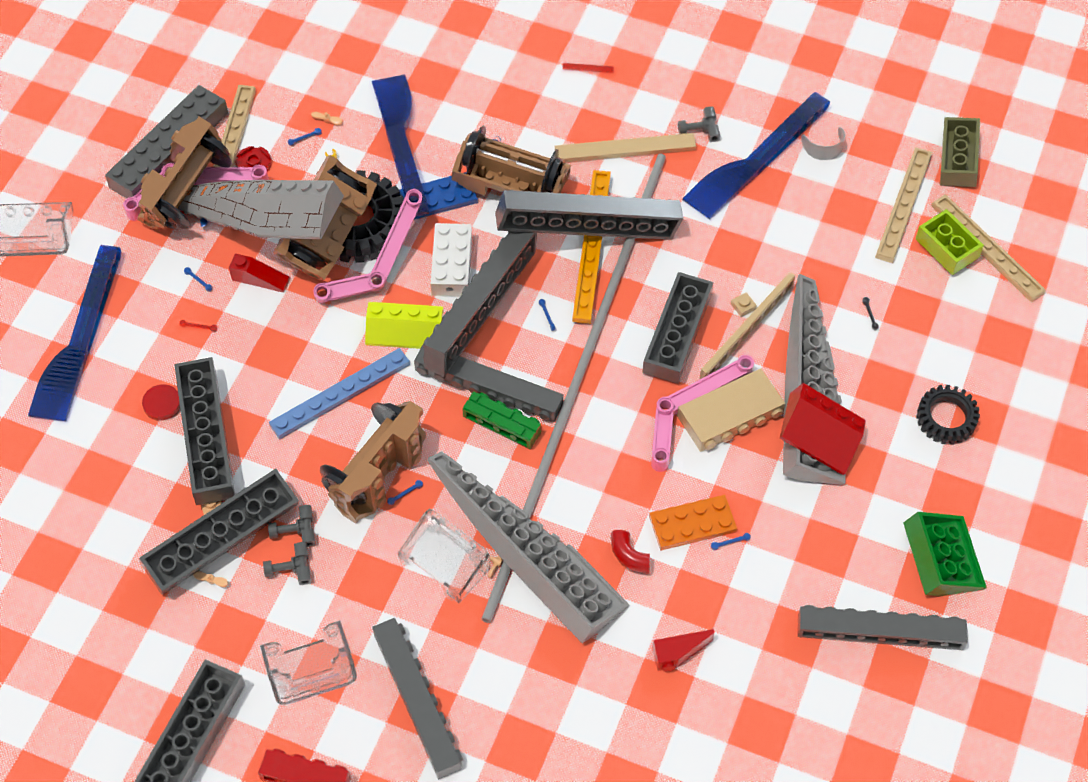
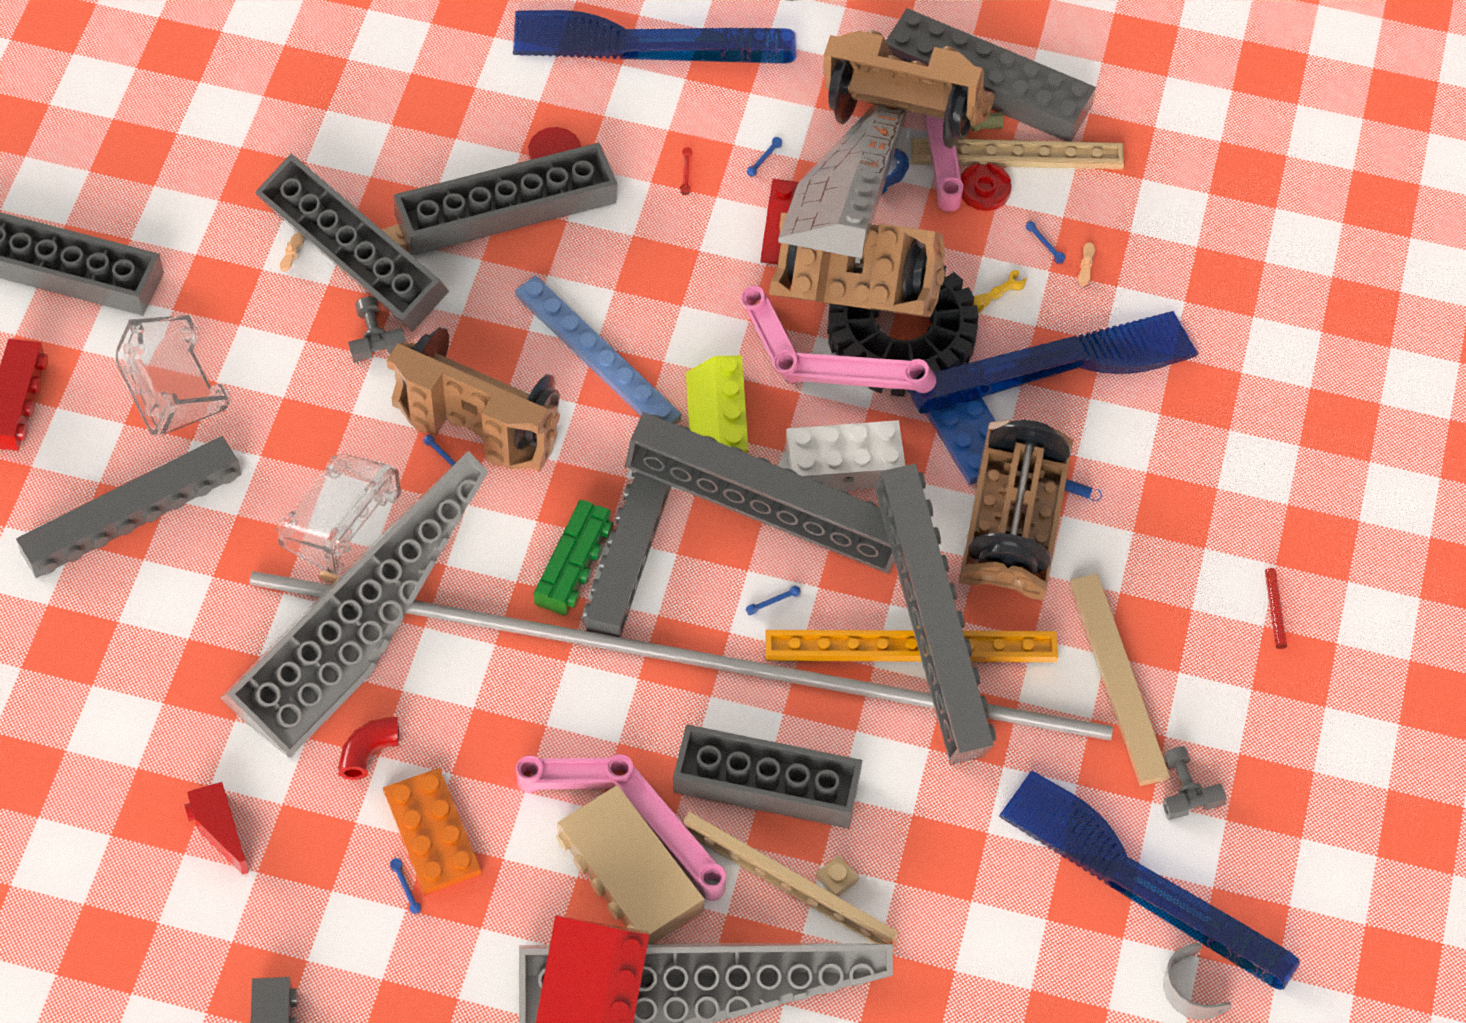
camera: 80 degrees right, 0 degrees up
(297, 563) = (318, 341): dark grey bar -> none

